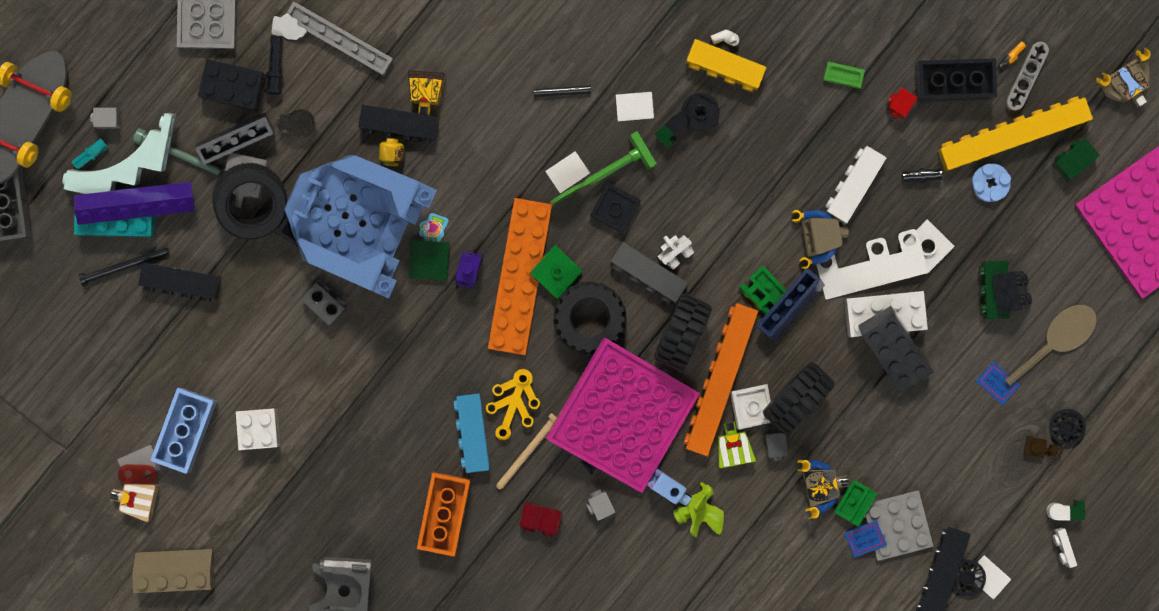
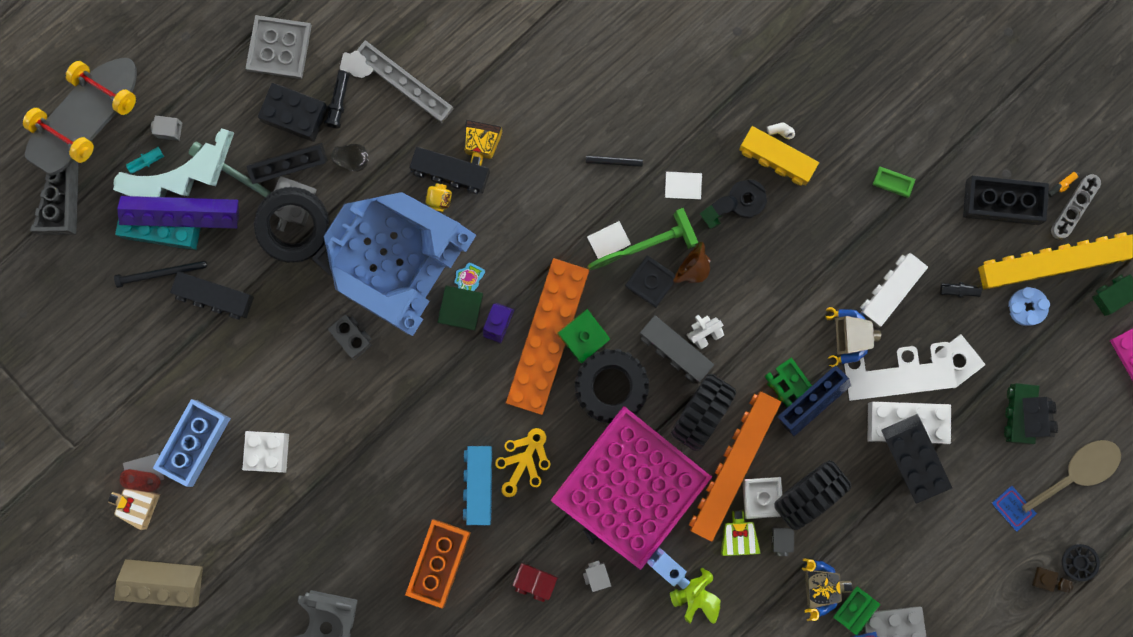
camera: 15 degrees right, 5 degrees down
(526, 453) = (530, 513): tan bar -> none
(656, 188) = (695, 266): none -> reddish brown hat
(901, 103) = (948, 216): red brick -> none

